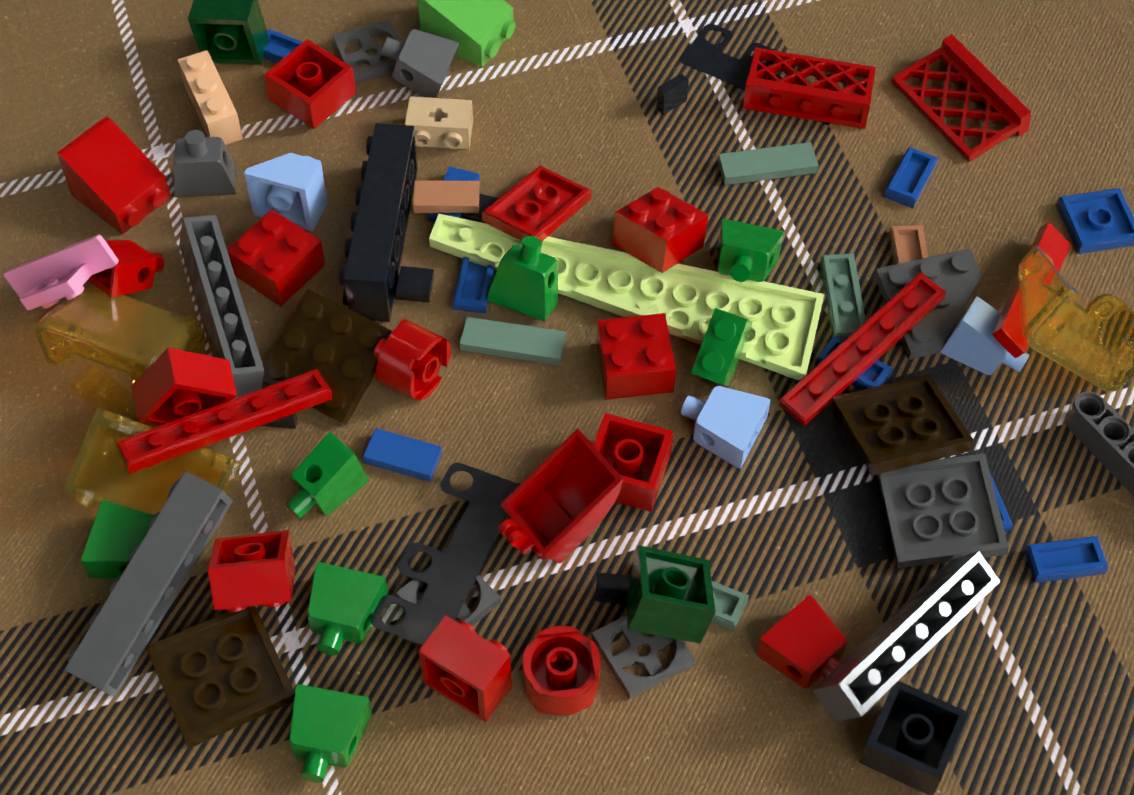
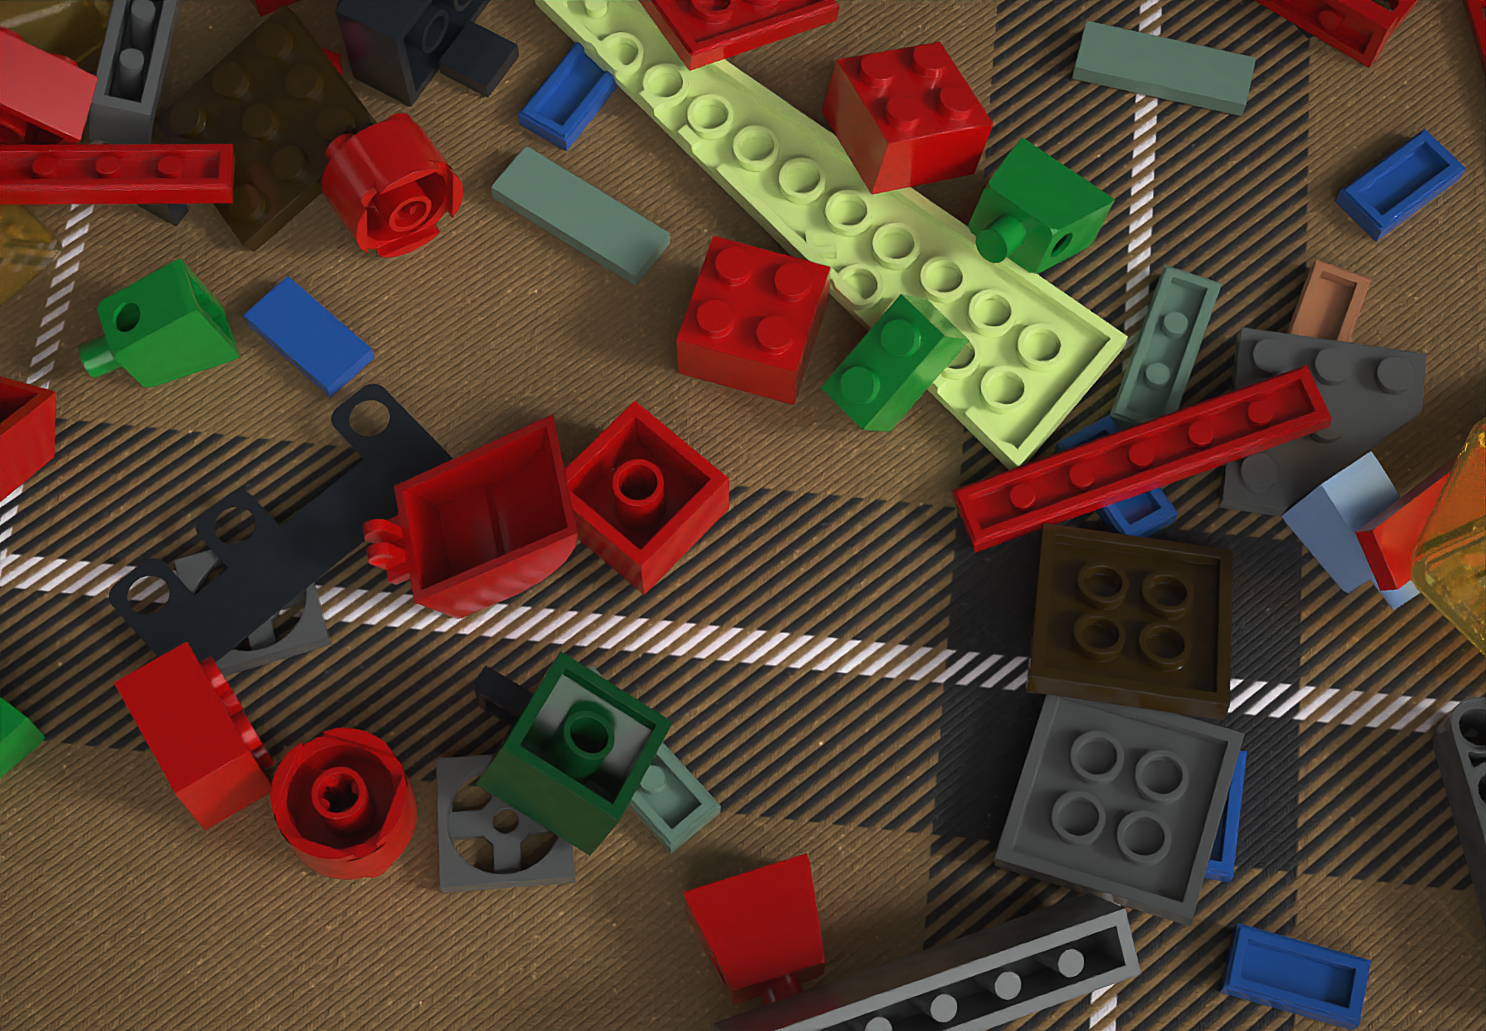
camera: 25 degrees right, 10 degrees up
(343, 605) = (79, 546): green torso -> none
(526, 280) = (642, 123): green torso -> none
(727, 422) = (845, 495): light blue torso -> none

